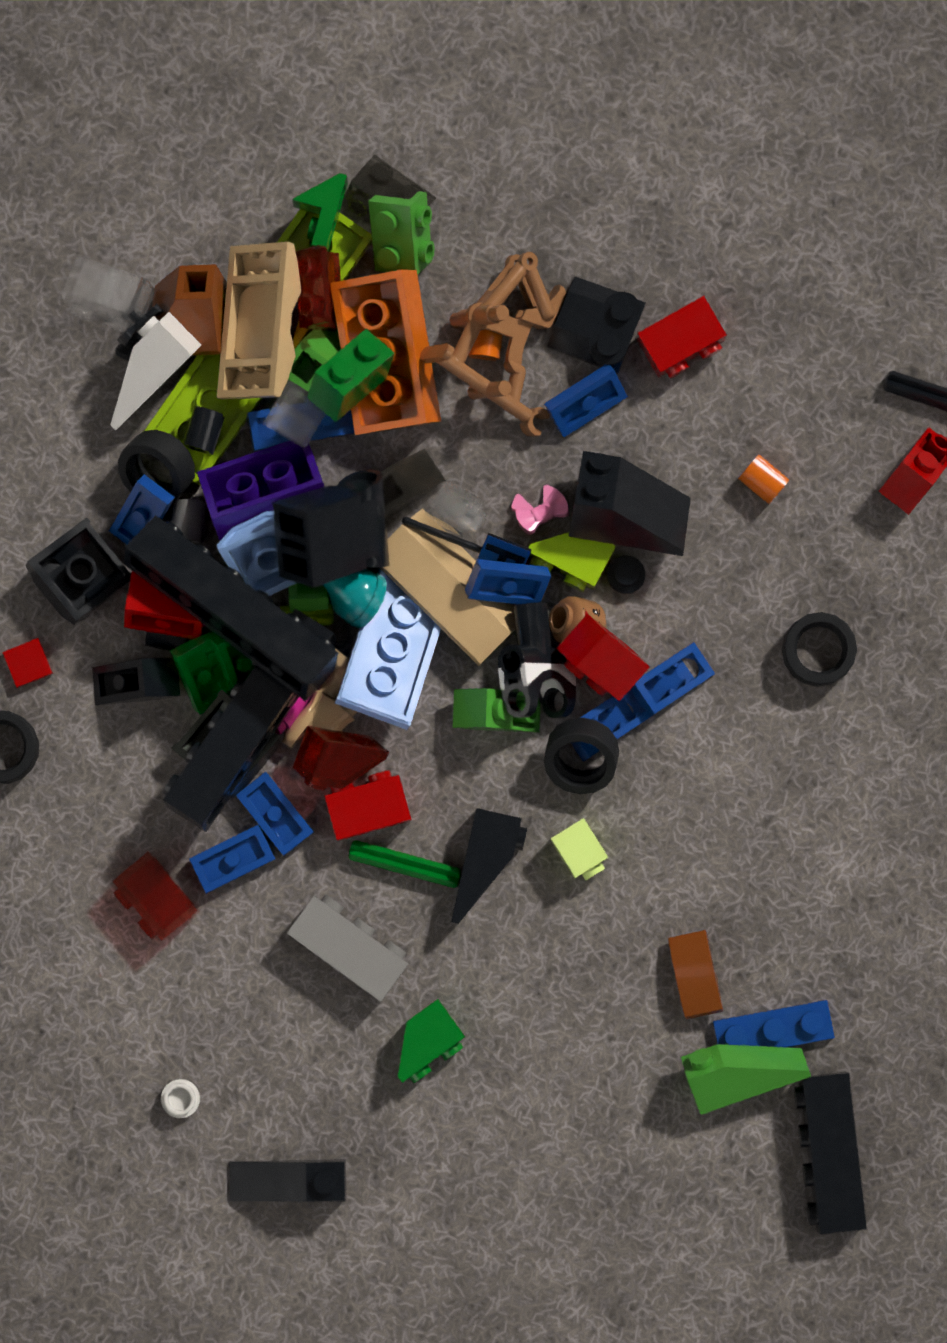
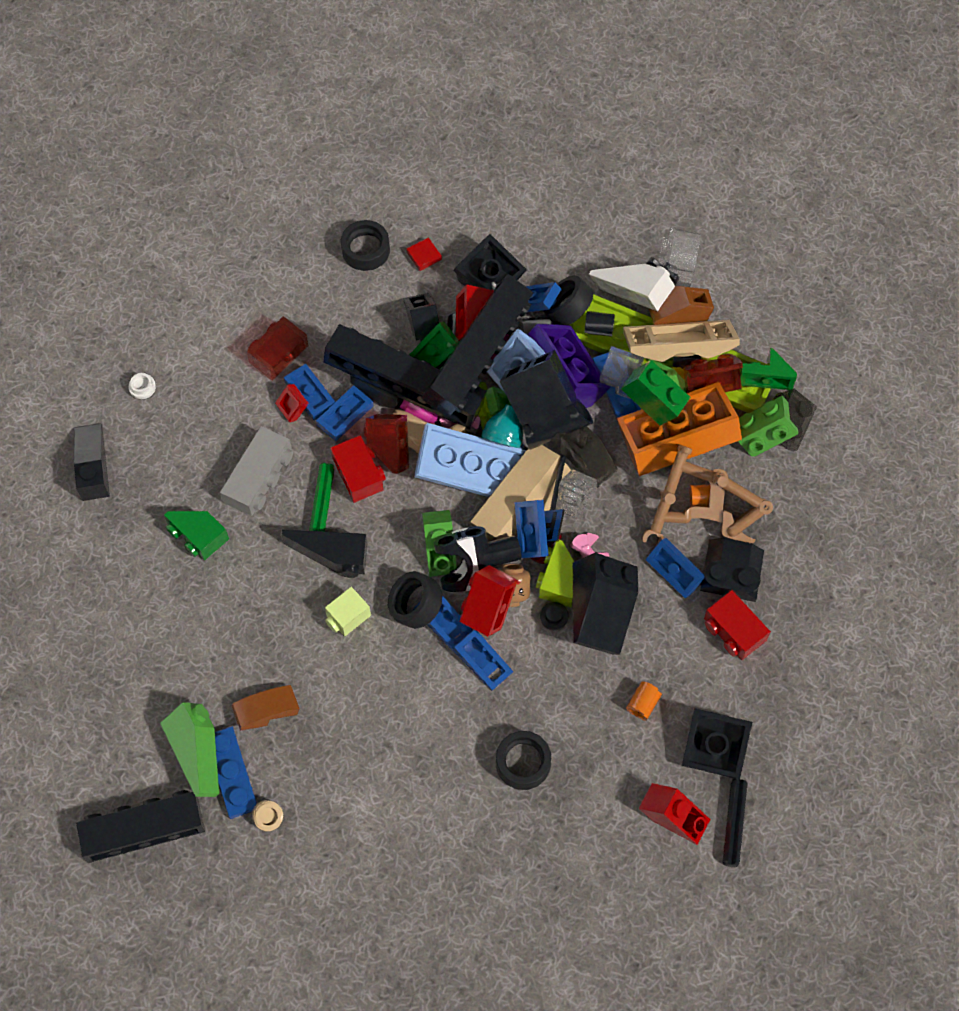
camera: 85 degrees right, 20 degrees down
(247, 886) = (291, 403): none -> red tile
(837, 397) = (717, 743): none -> black slope
(840, 988) = (267, 815): none -> tan tile

